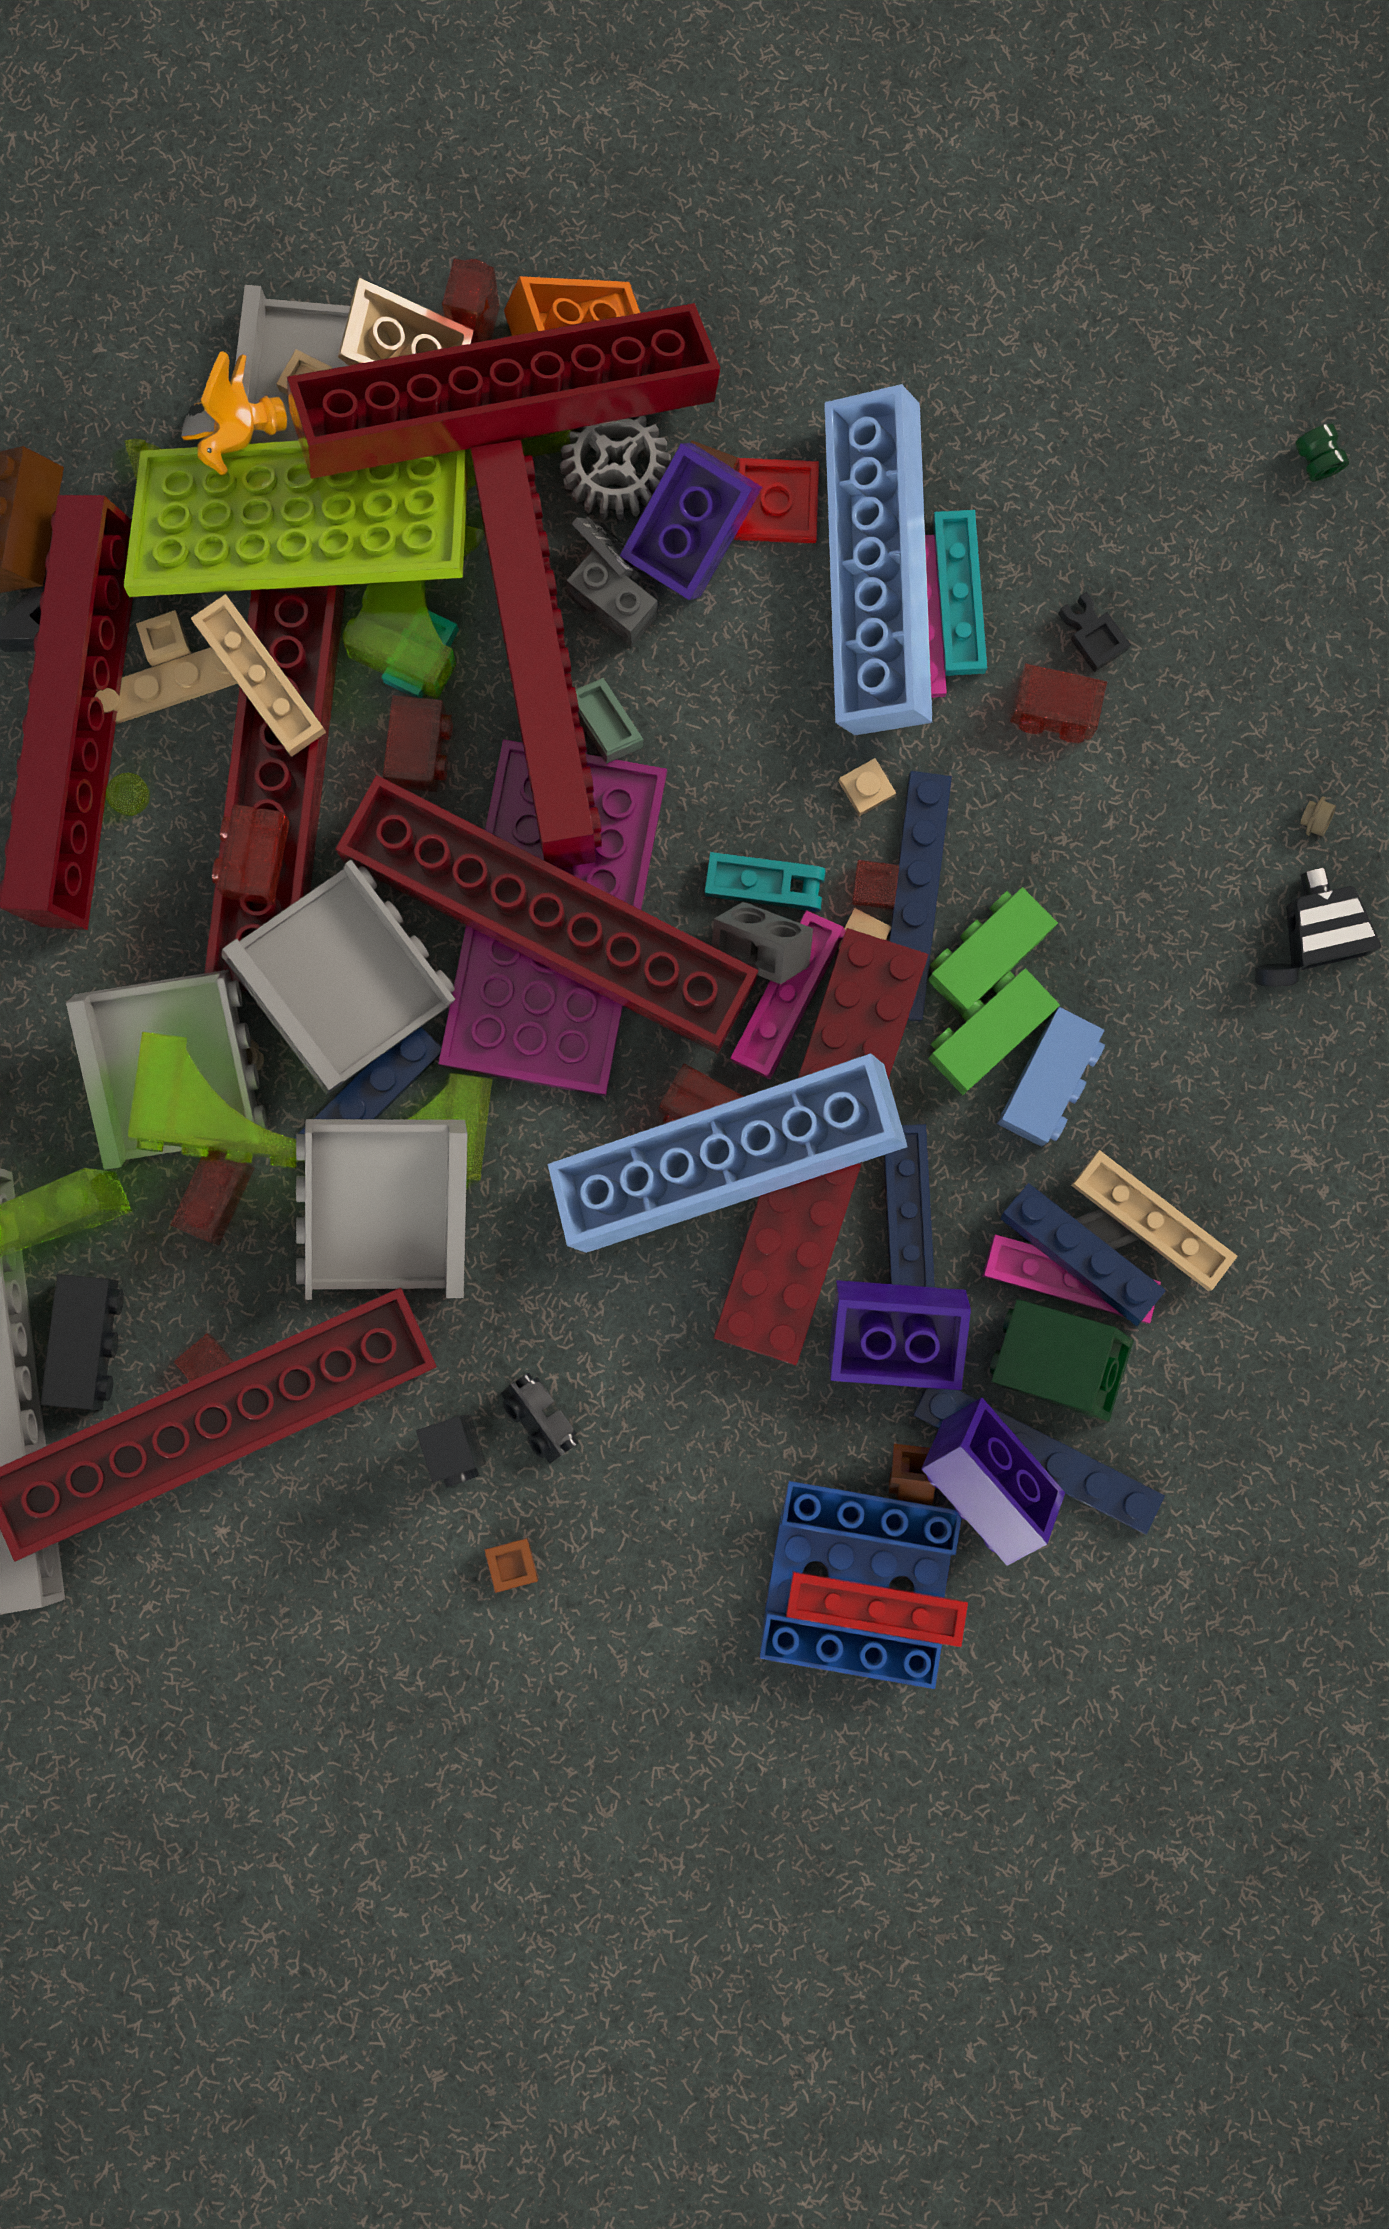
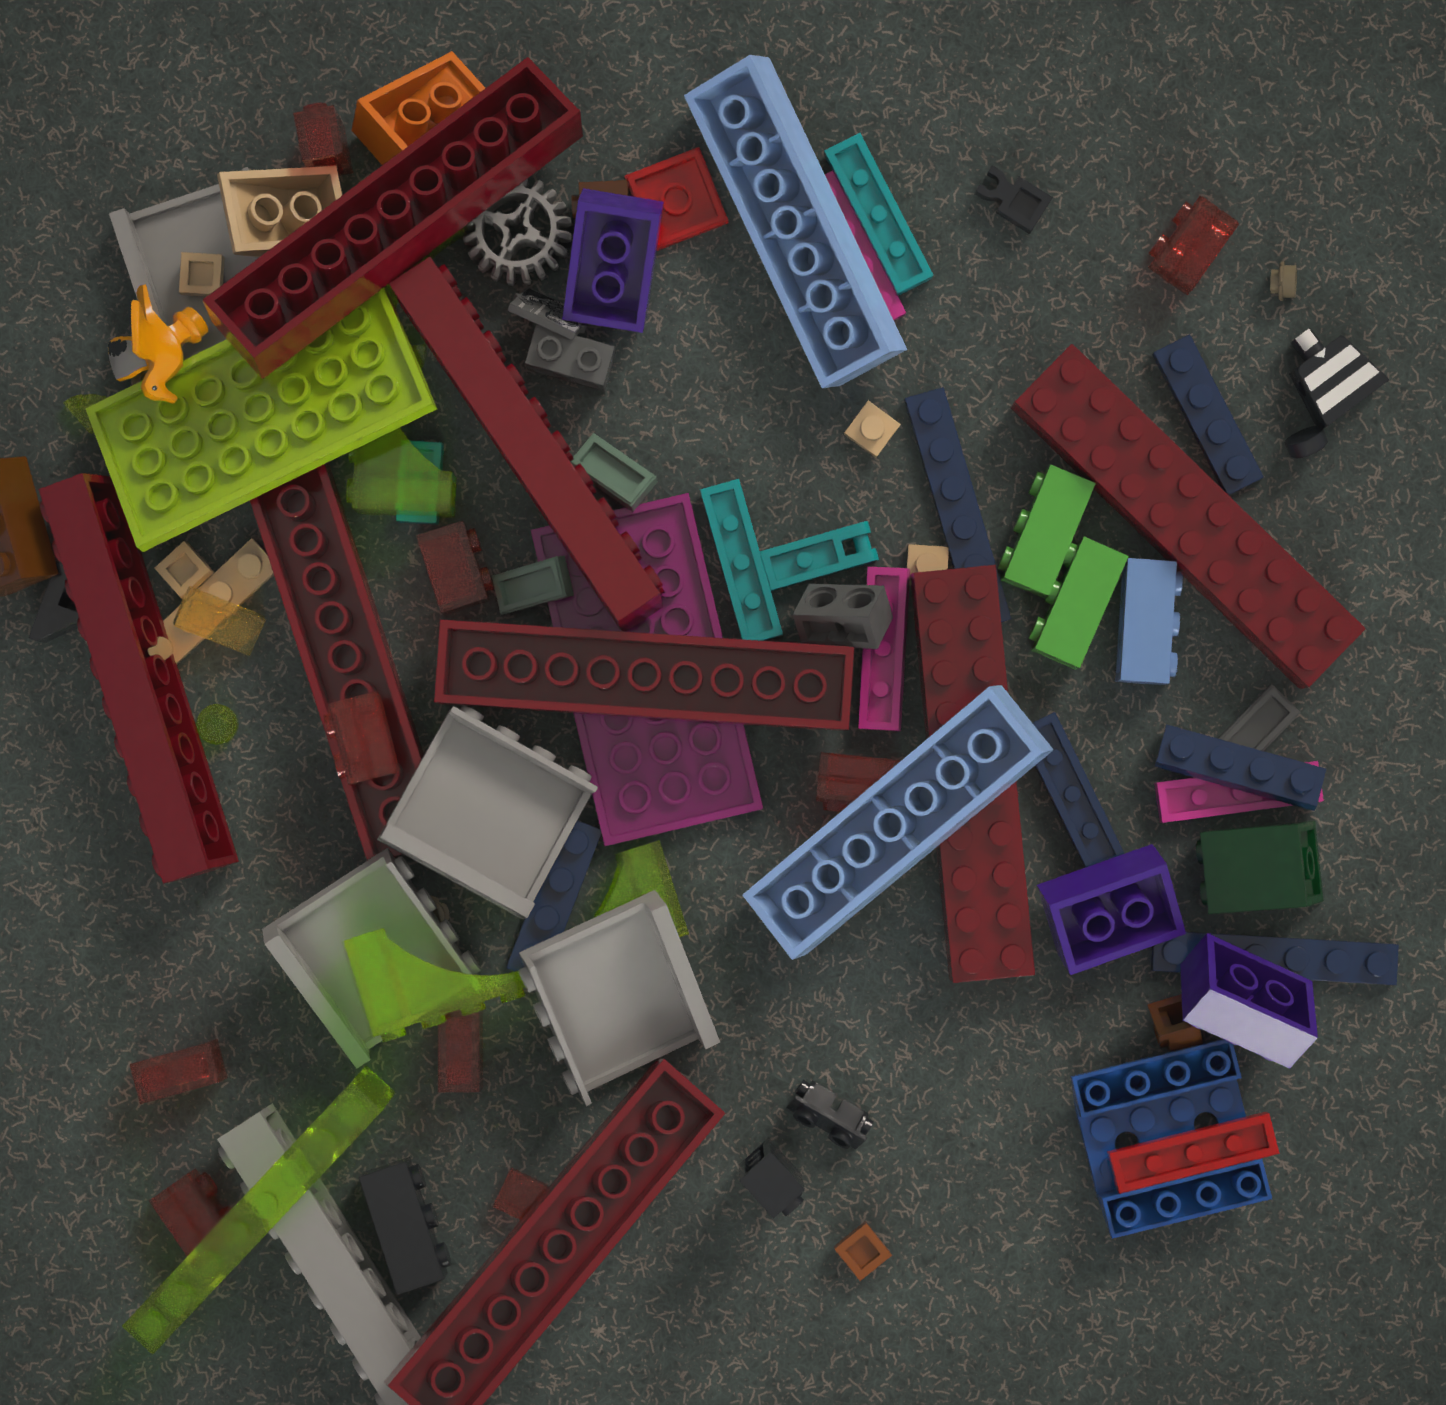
camera: 20 degrees left, 5 degrees up
(173, 697) = (219, 620): none -> clear yellow plate
(258, 675) = (293, 574): tan plate -> none
(481, 790) = (532, 585): none -> sand green tile
(689, 851) = (741, 561): none -> teal plate
(875, 884) = (918, 515): clear red plate -> none
(1058, 703) = (1010, 280): clear red brick -> none
(1132, 995) = (1187, 518): none -> dark red brick
(1154, 1220) = (1290, 710): tan plate -> none
(1192, 911) = (1207, 415): none -> dark blue plate
(1244, 745) = (1193, 244): none -> clear red brick

